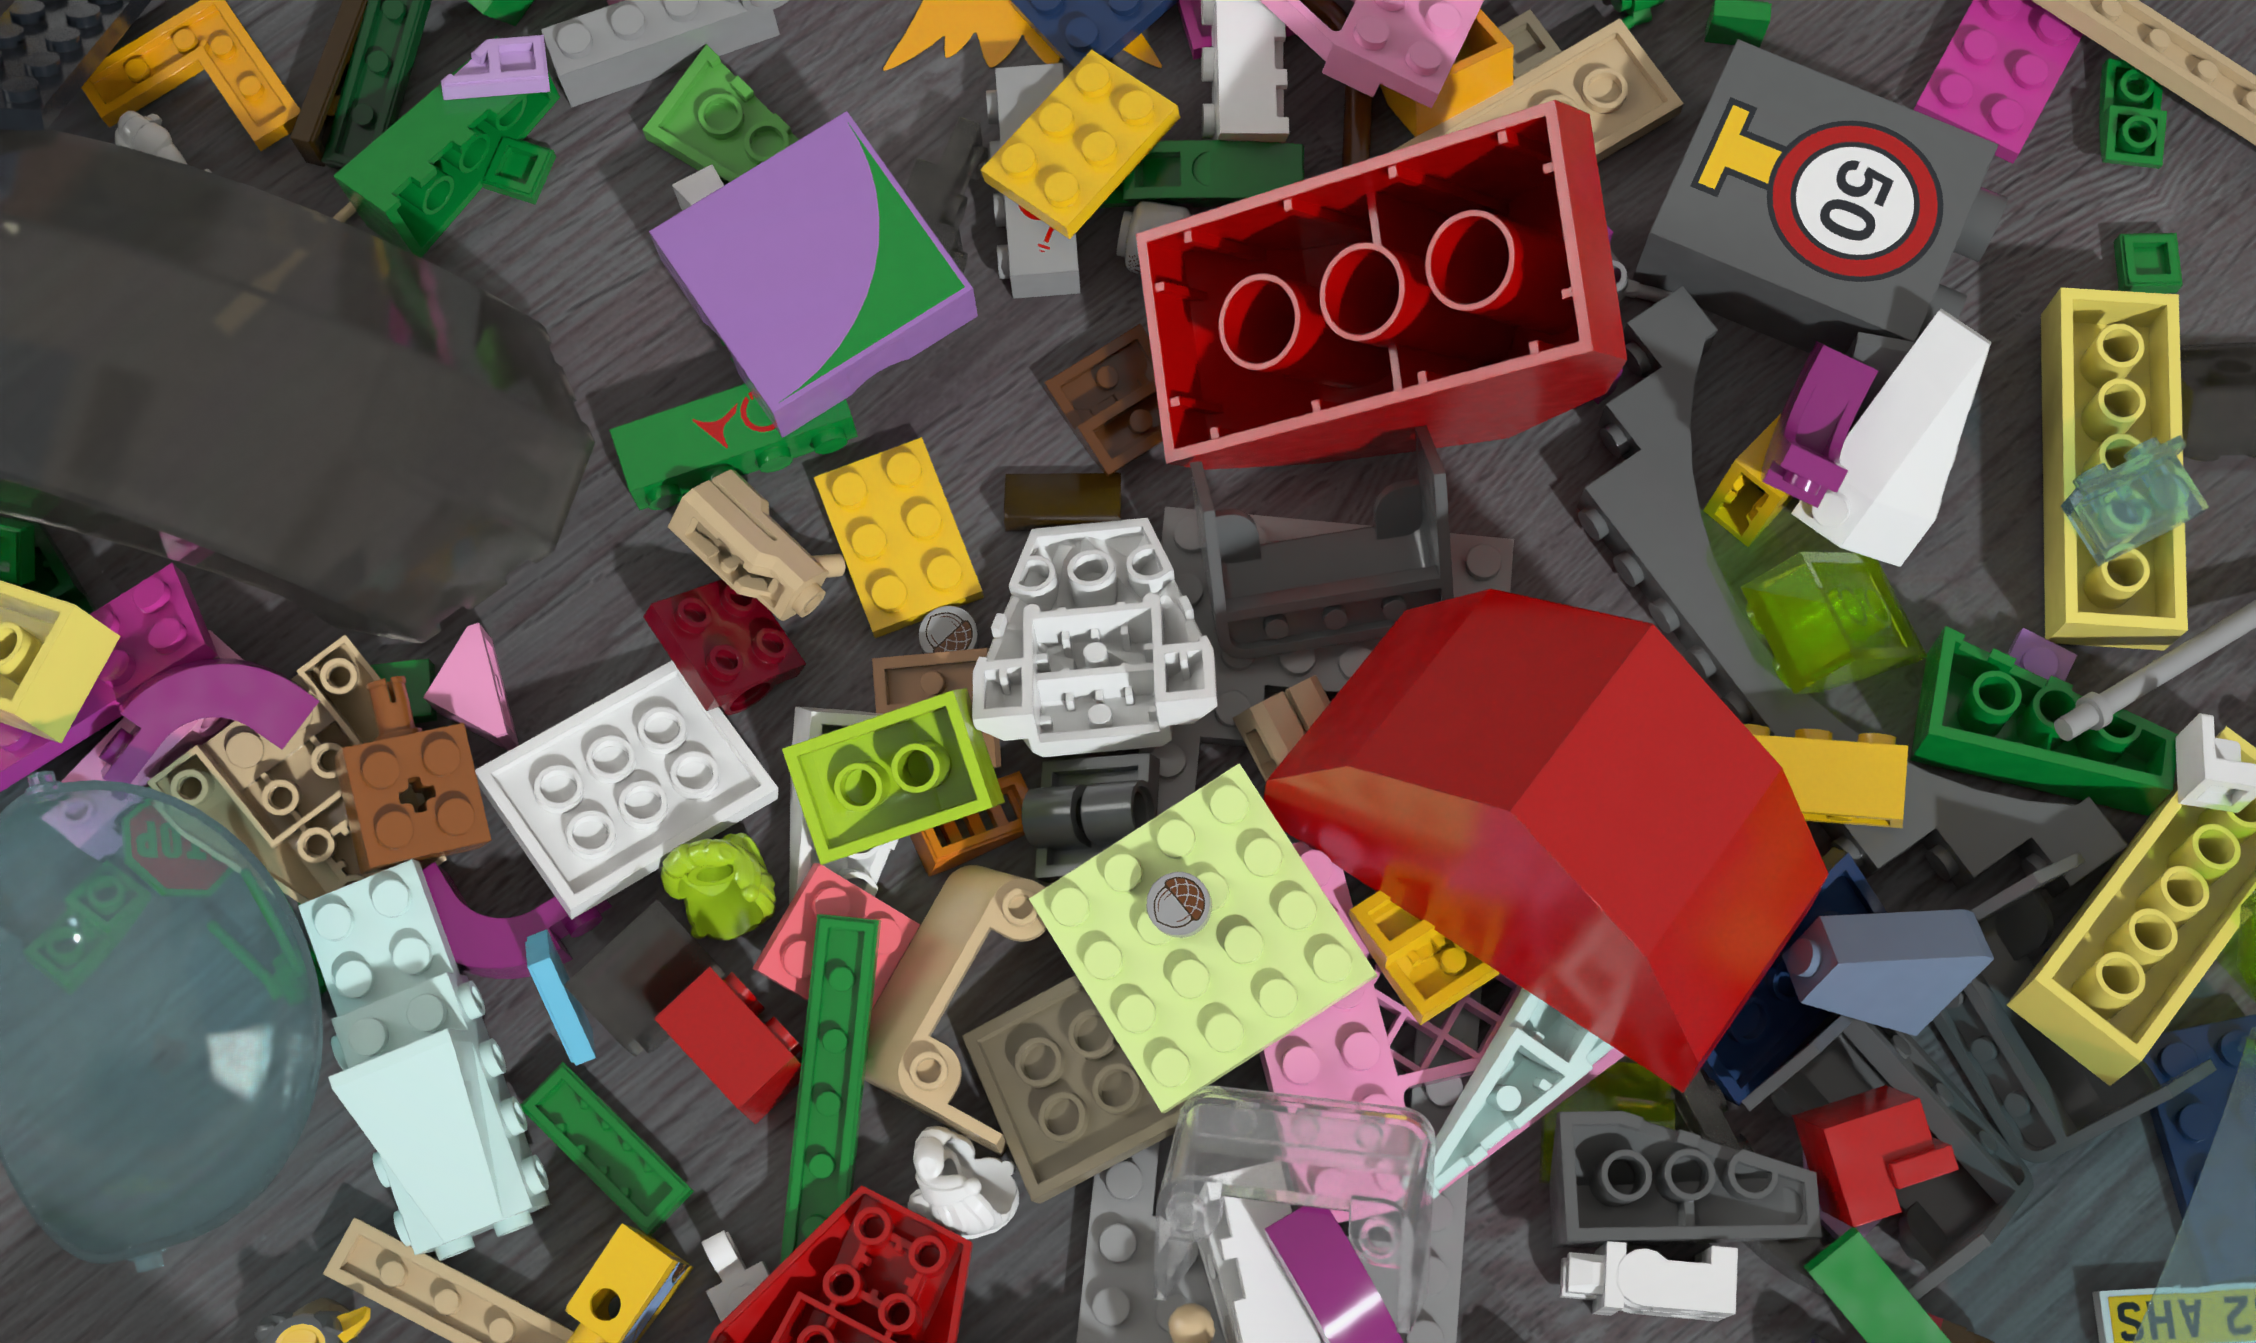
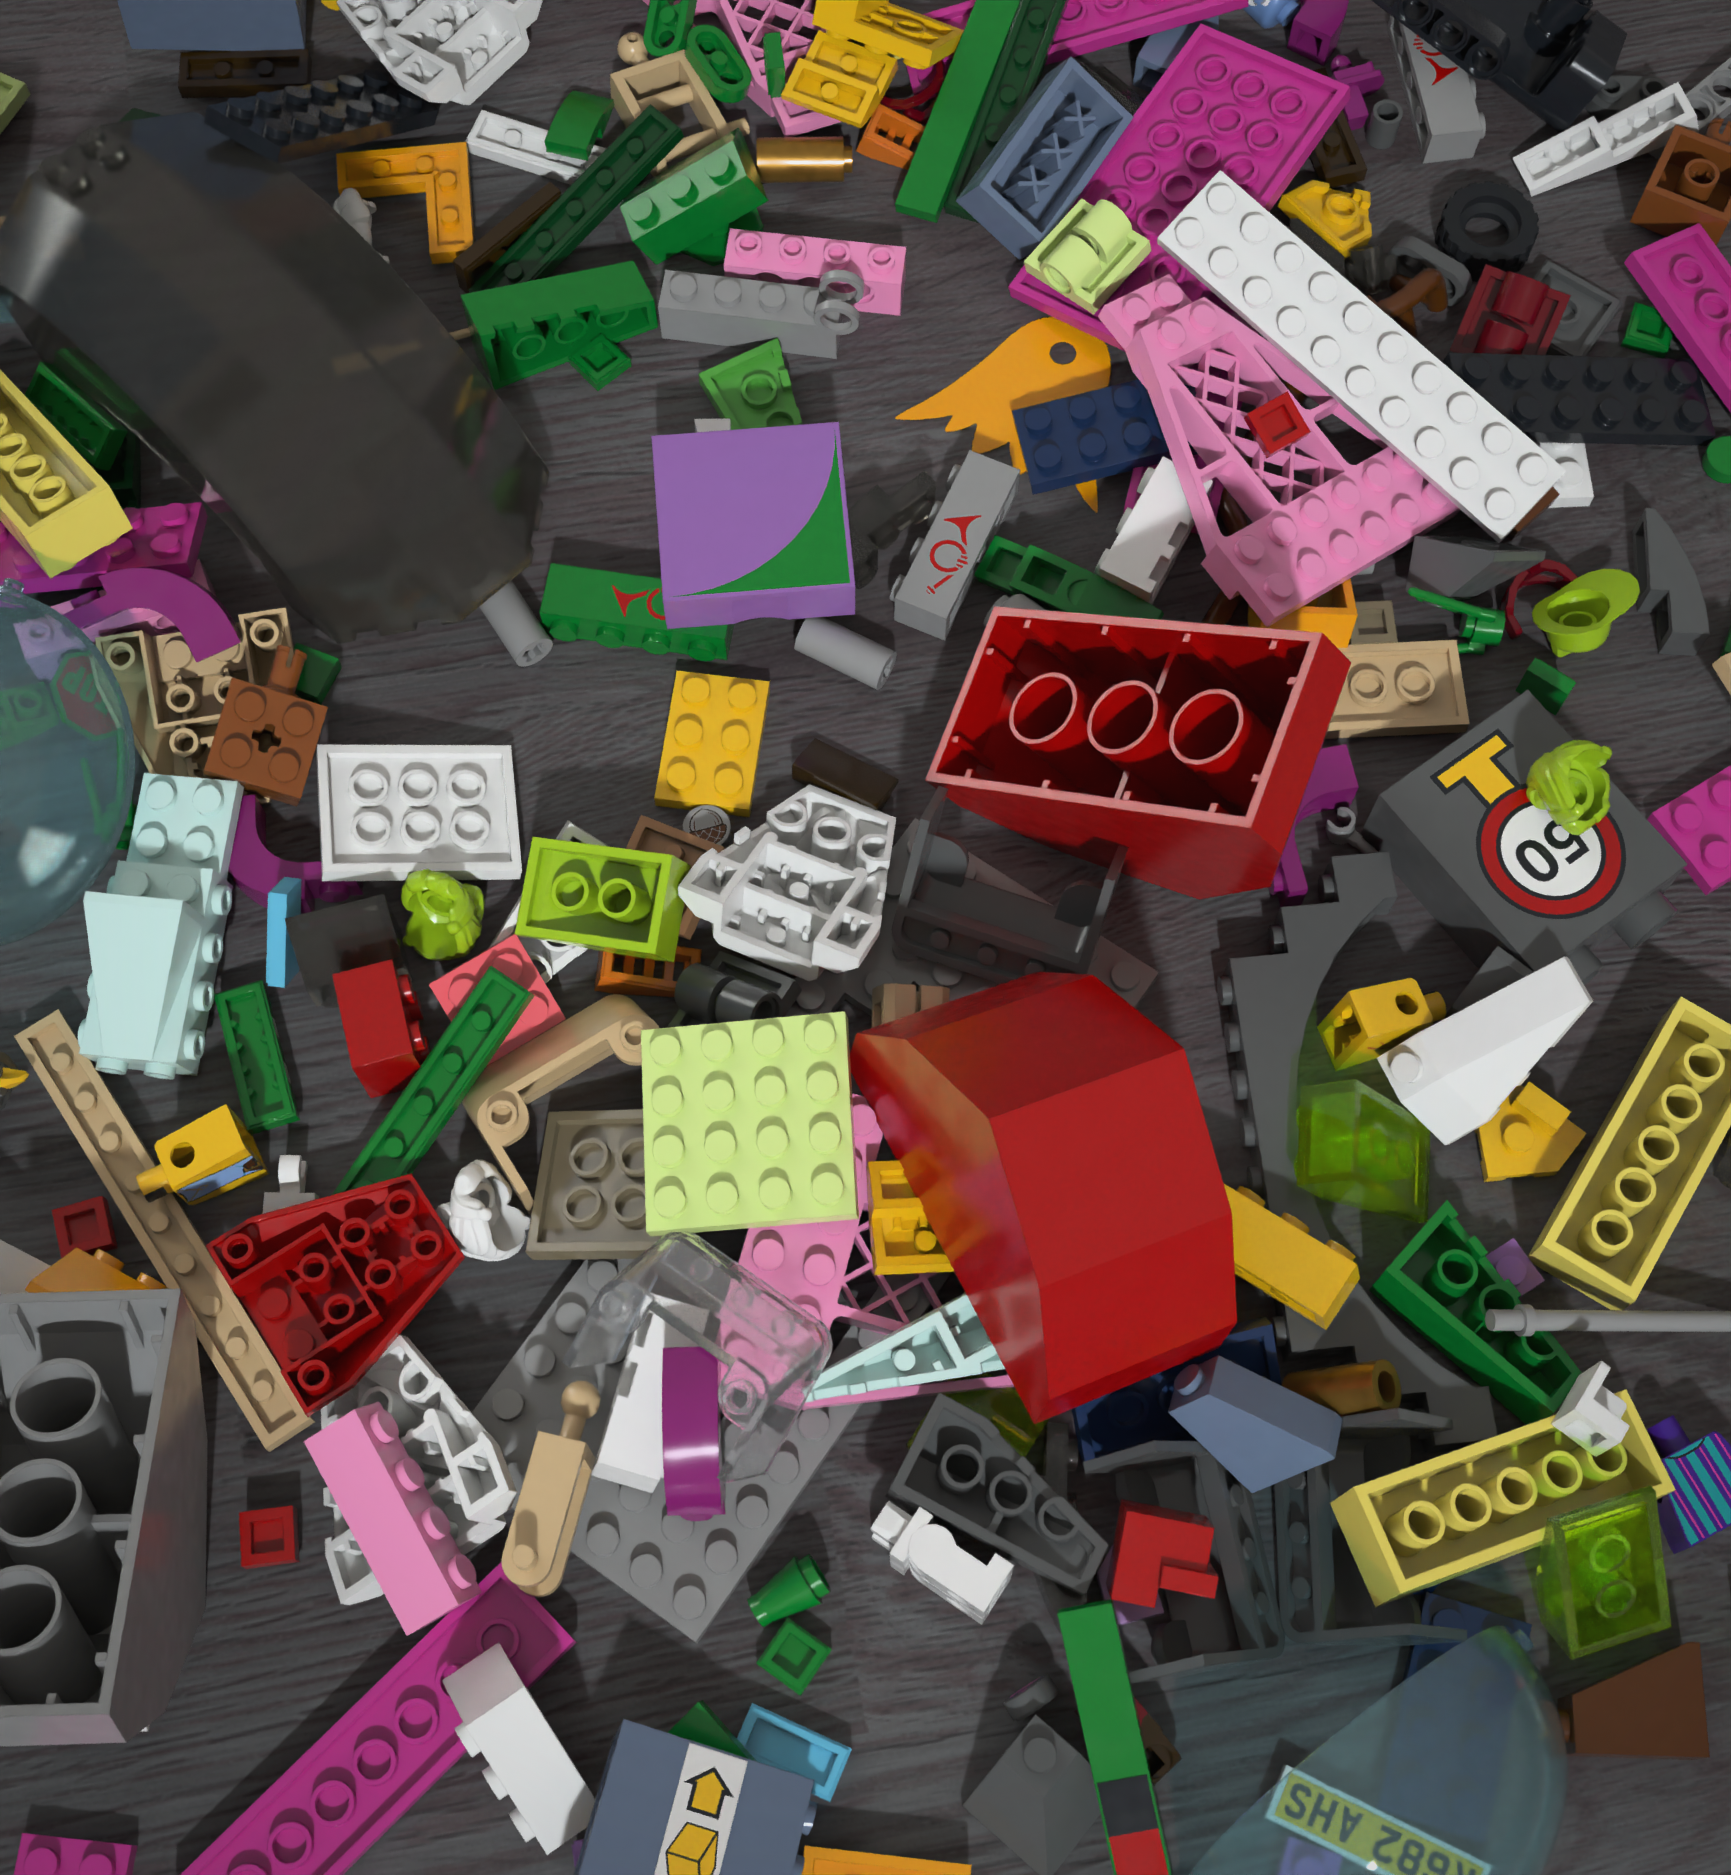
camera: 25 degrees right, 5 degrees down
(472, 689) = (356, 693): bright pink slope -> none
(501, 69) = (621, 282): lavender tile -> none
(612, 520) = (517, 626): none -> light grey piece
(724, 645) = (544, 751): dark red plate -> none
(749, 550) = (598, 695): tan piece -> none
(985, 361) = (845, 651): none -> light grey piece
(1080, 144) = (997, 530): yellow plate -> none
(1111, 400) = (914, 724): reddish brown slope -> none
(1179, 904) = (740, 1087): light grey tile -> none
(1814, 425) = (1424, 995): magenta arch -> none
(1844, 122) = (1572, 784): none -> lime hair
(1958, 877) = (1349, 1387): none -> pearl gold brick
(1980, 515) = (1527, 1136): none -> yellow plate
(2134, 500) = (1646, 1179): clear light blue bracket -> none

